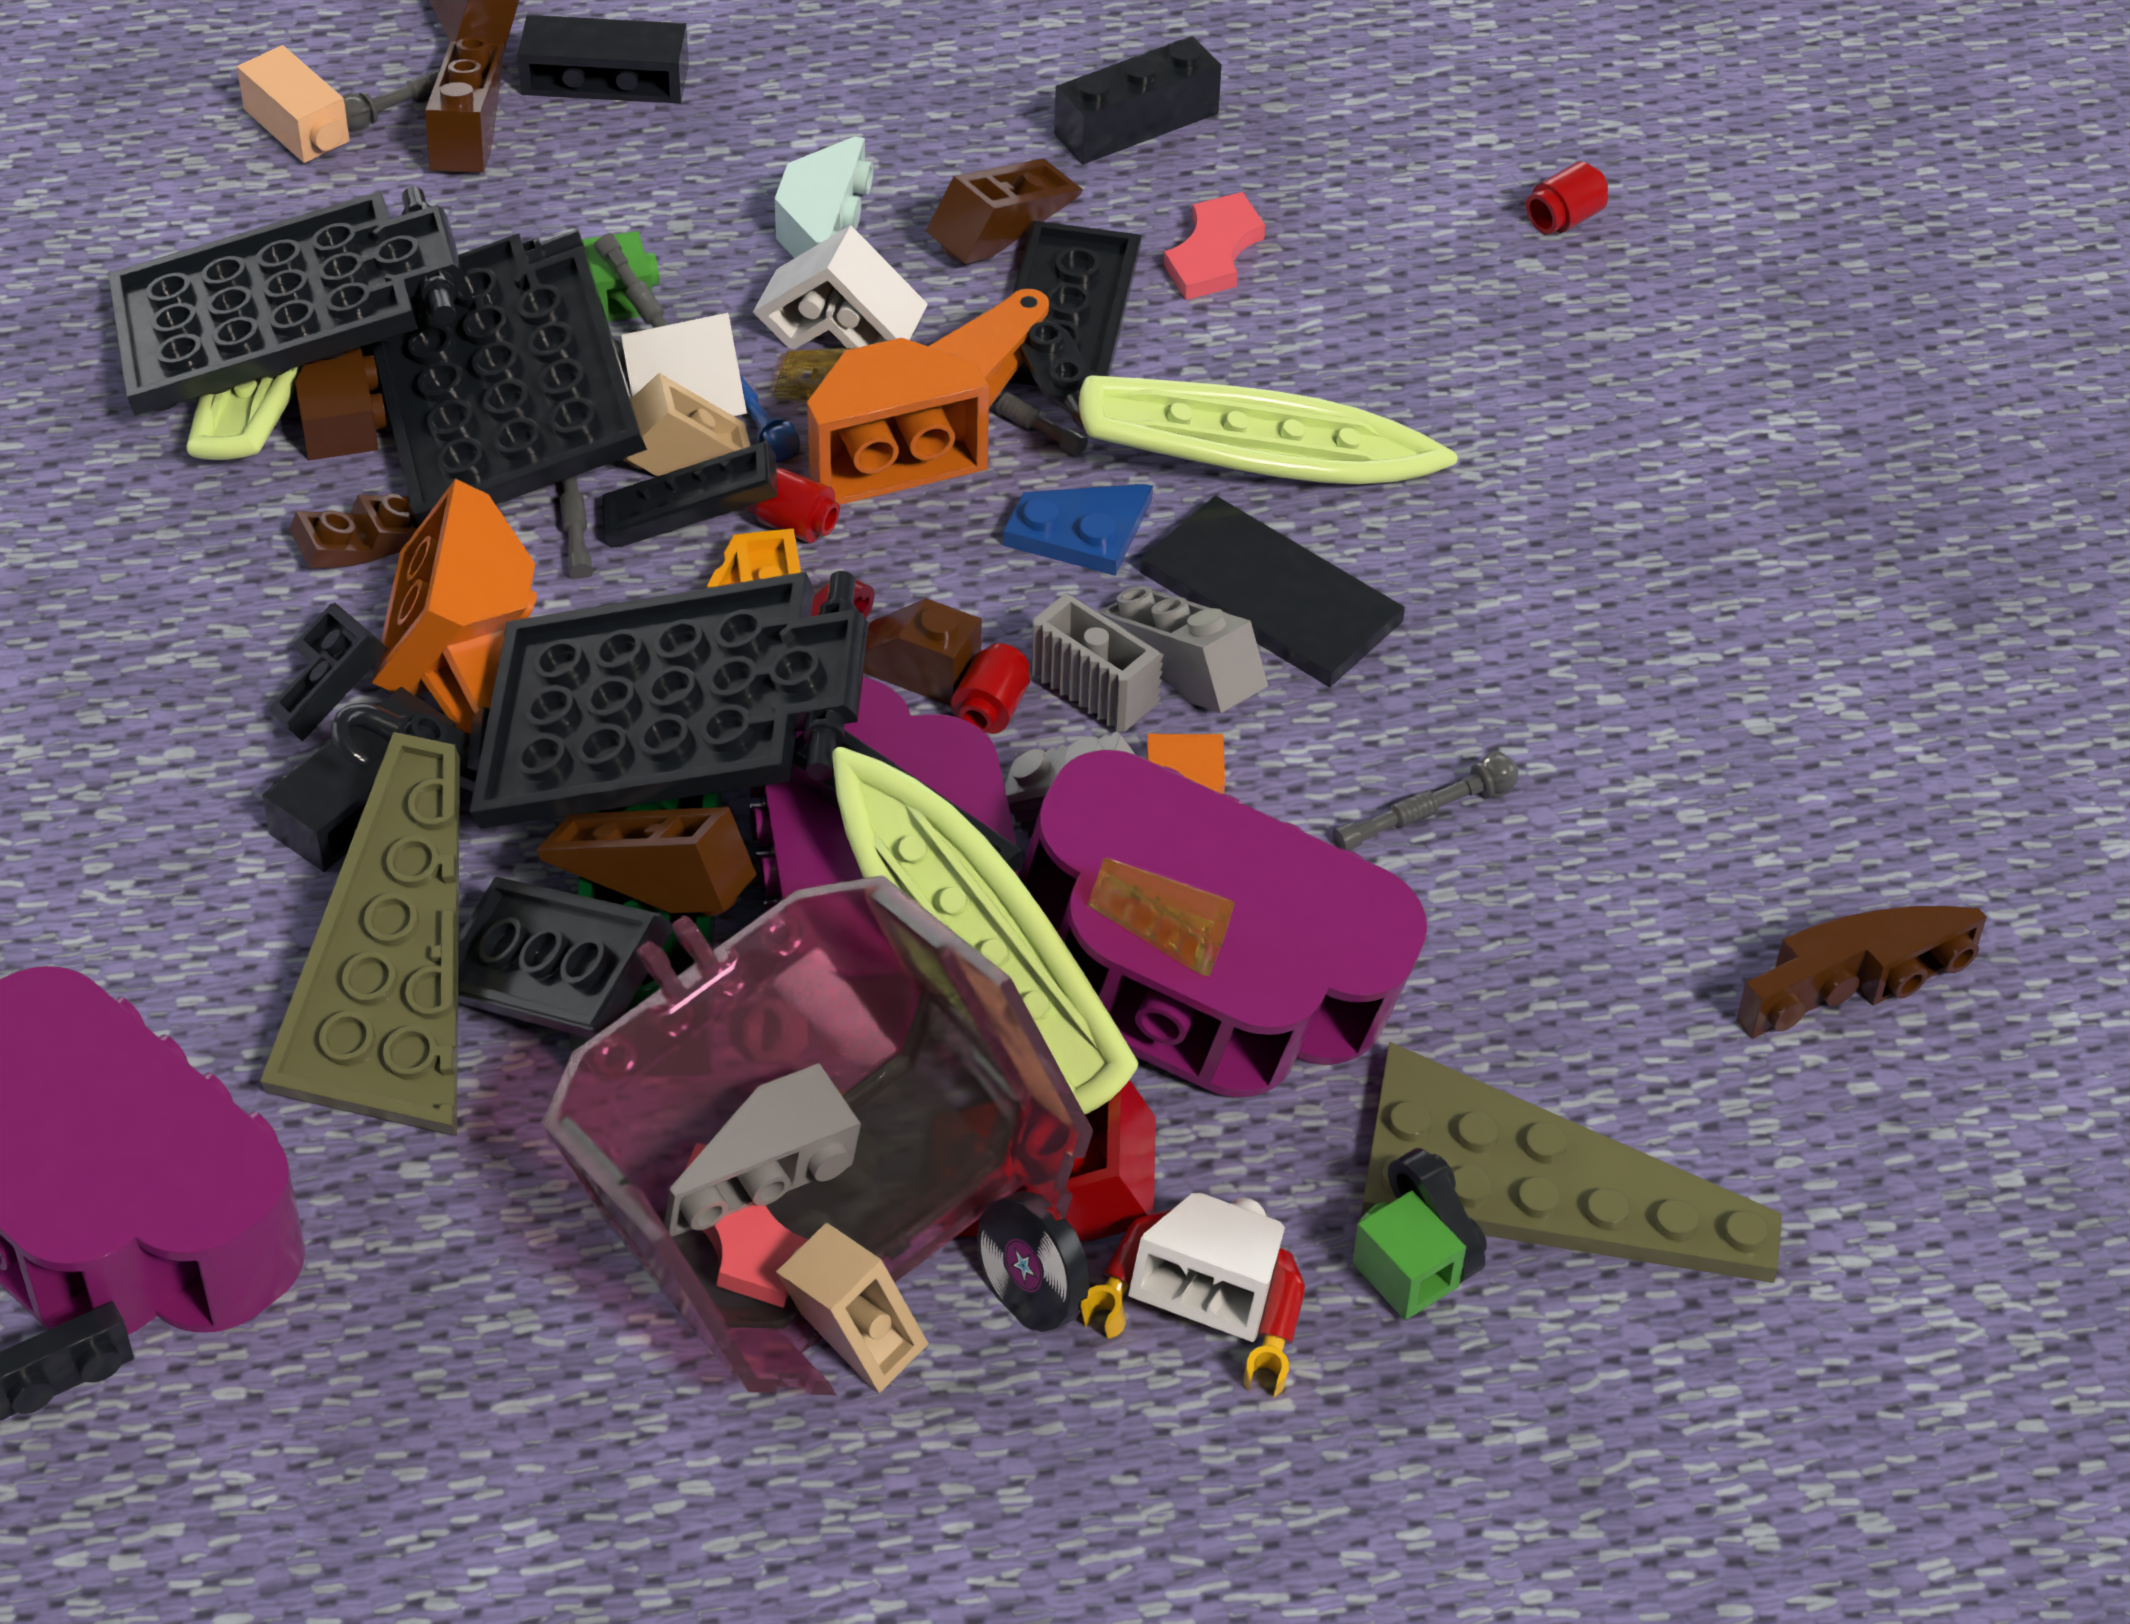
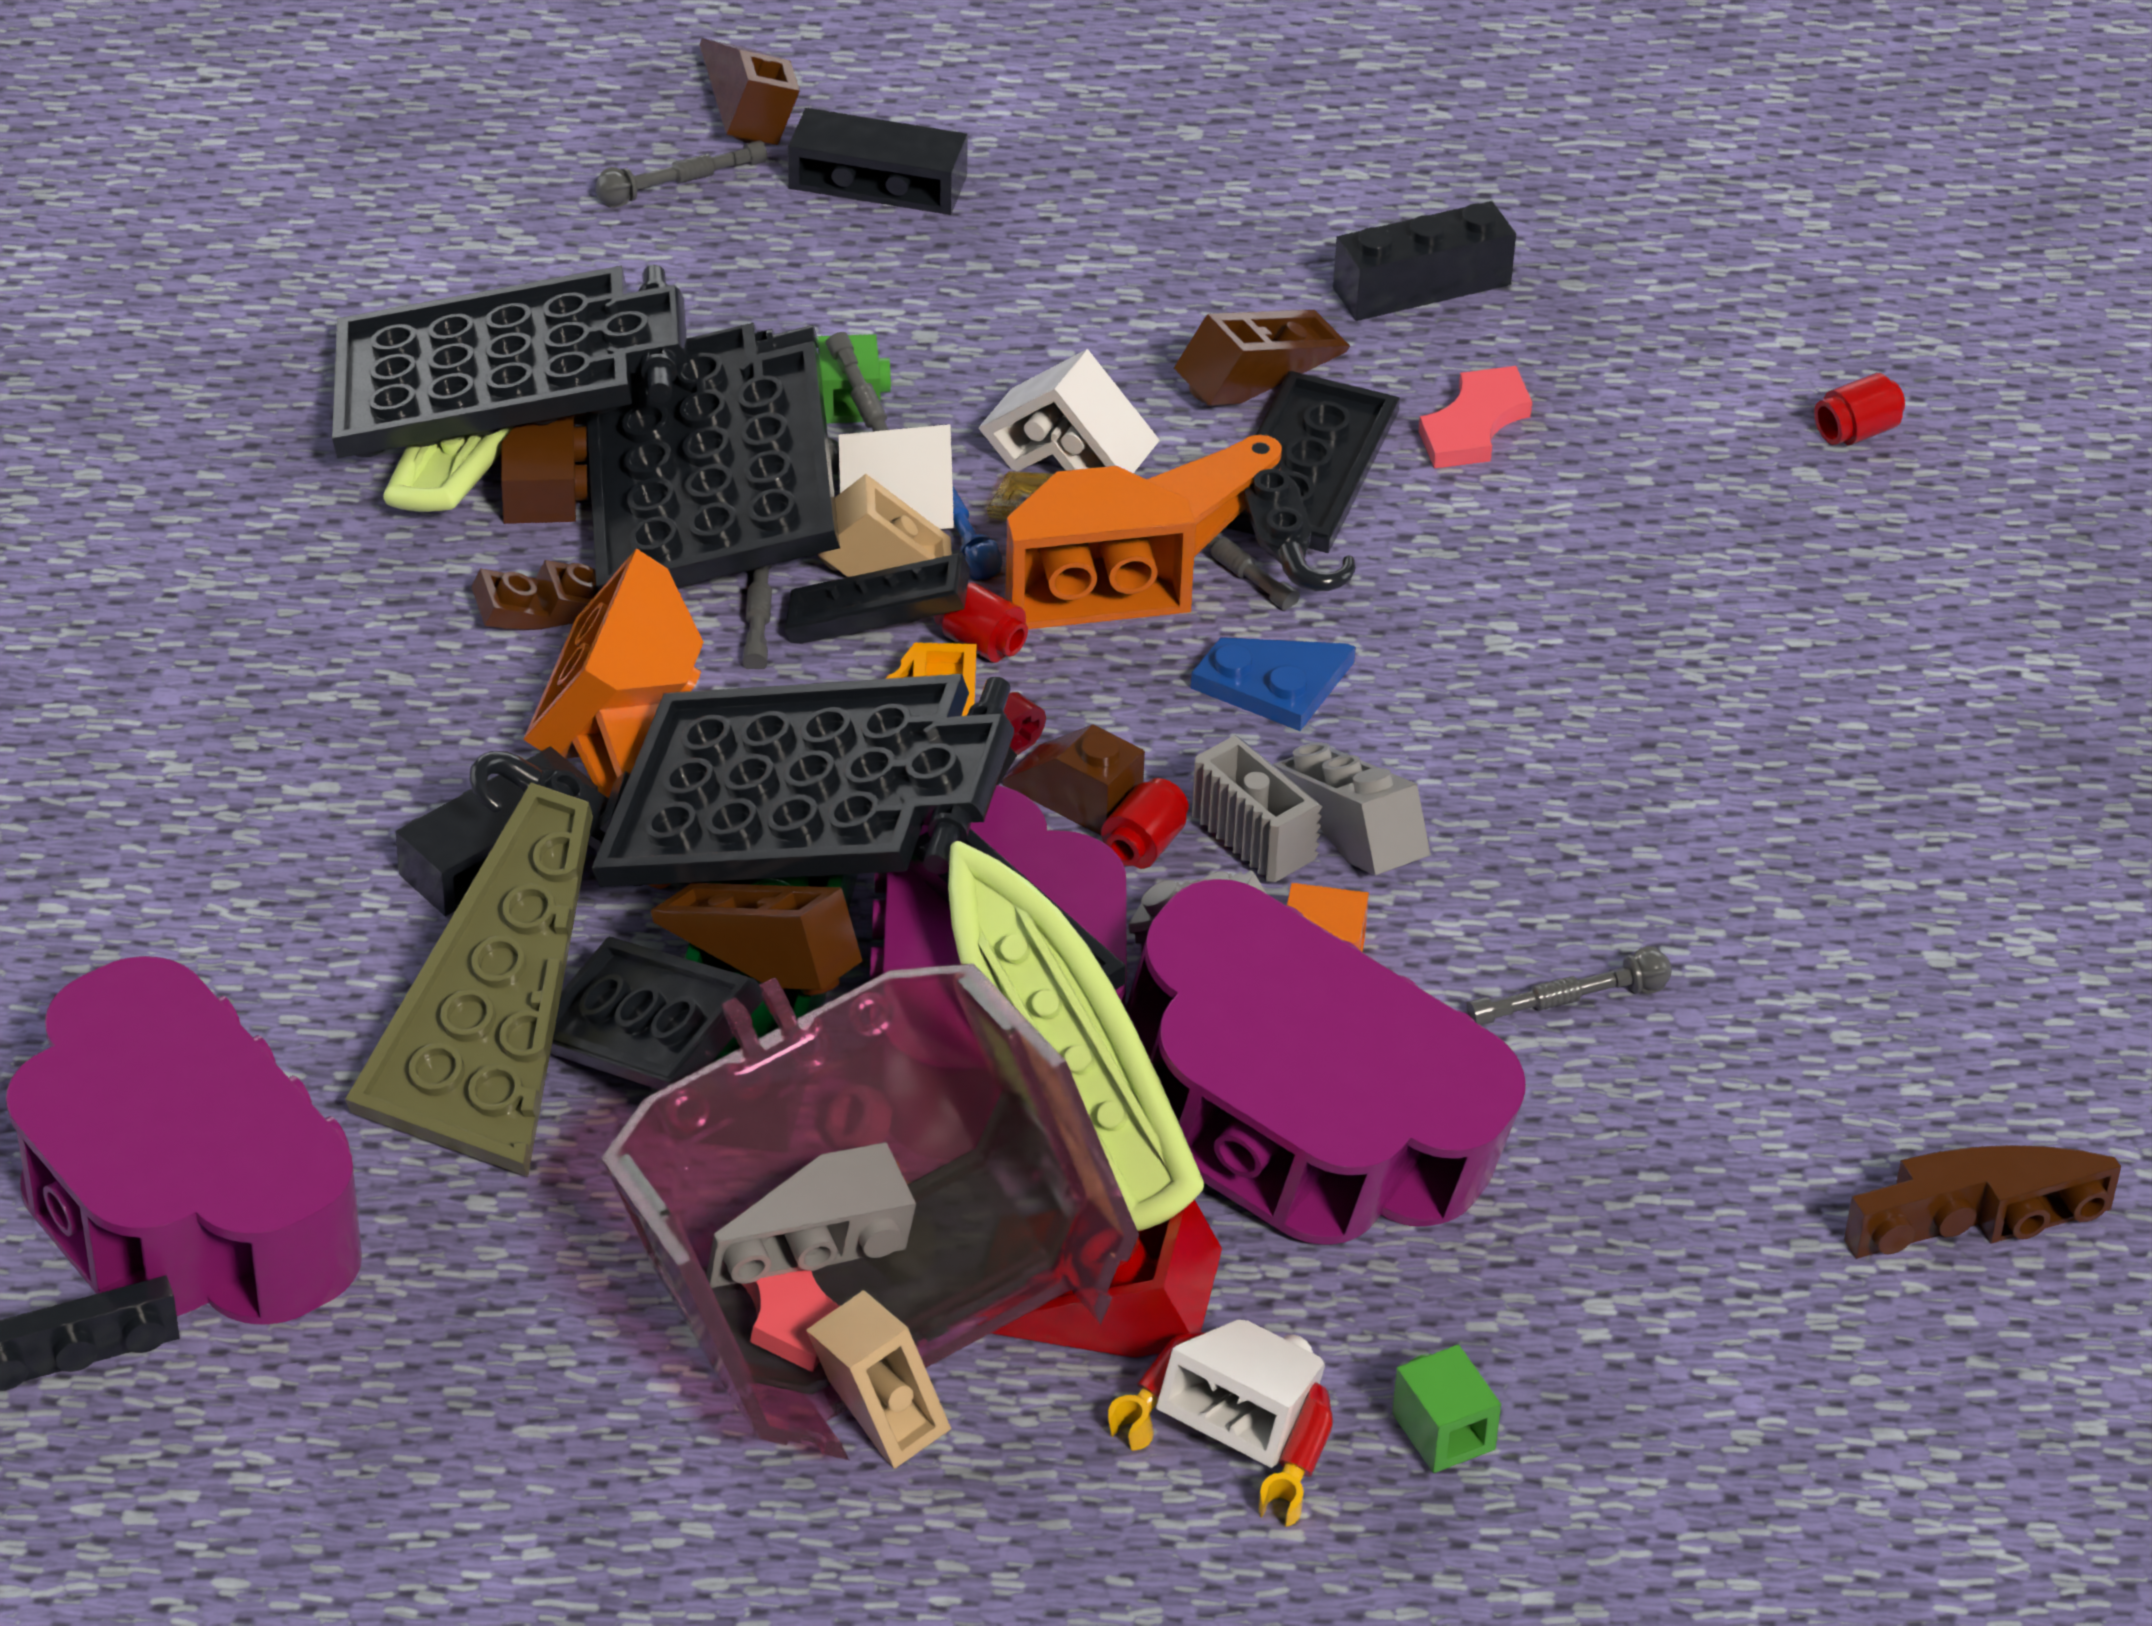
camera: 10 degrees right, 5 degrees down
(293, 103) = (552, 171): light nougat brick -> none
(338, 657) = (494, 709): black tile -> none
(464, 106) = (725, 192): reddish brown slope -> none
(821, 195) = (1075, 317): light aqua slope -> none
(1032, 1261) = (1065, 1360): black tile -> none
(1164, 913) = (1251, 1039): clear yellow slope -> none
(1257, 431) = (1474, 604): yellowish green piece -> none
(1292, 596) = (1463, 762): black tile -> none
(1435, 1185) = (1484, 1343): black plate -> none
(1560, 1183) = (1595, 1356): olive wing -> none

